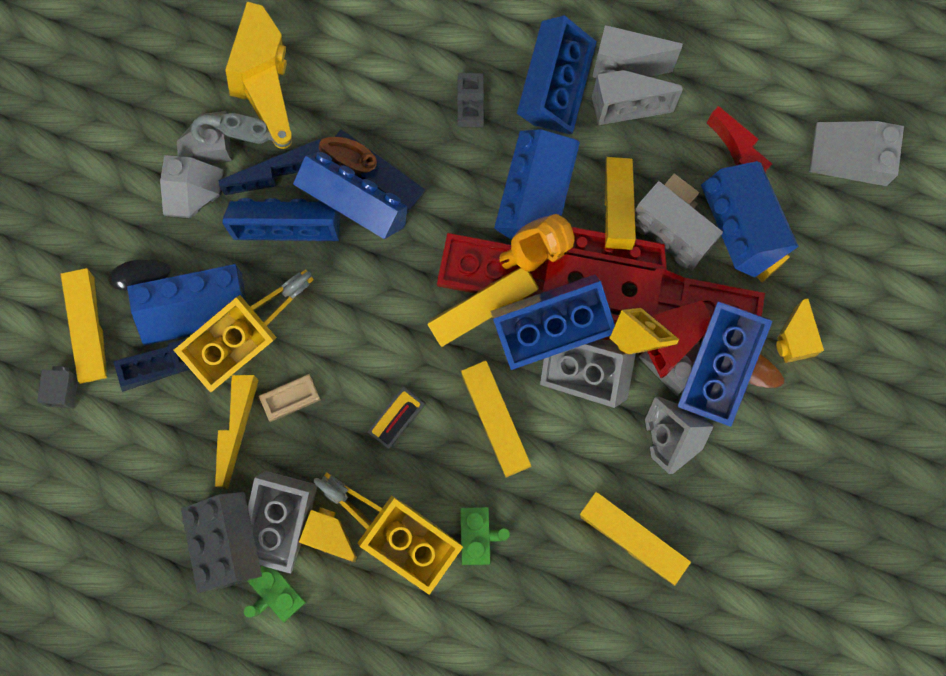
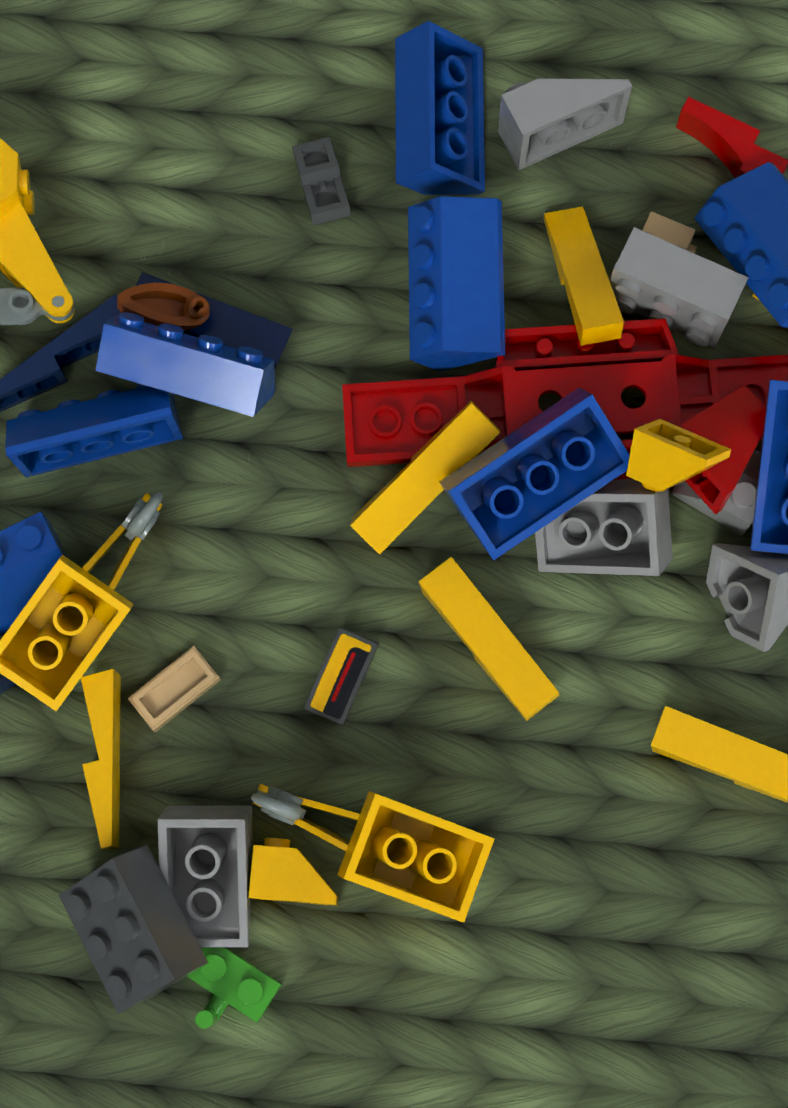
camera: 10 degrees left, 0 degrees up
(477, 536) = (508, 819): bright green plate -> none
(539, 241) = (483, 361): light orange piece -> none
(635, 53) = (546, 49): light grey slope -> none

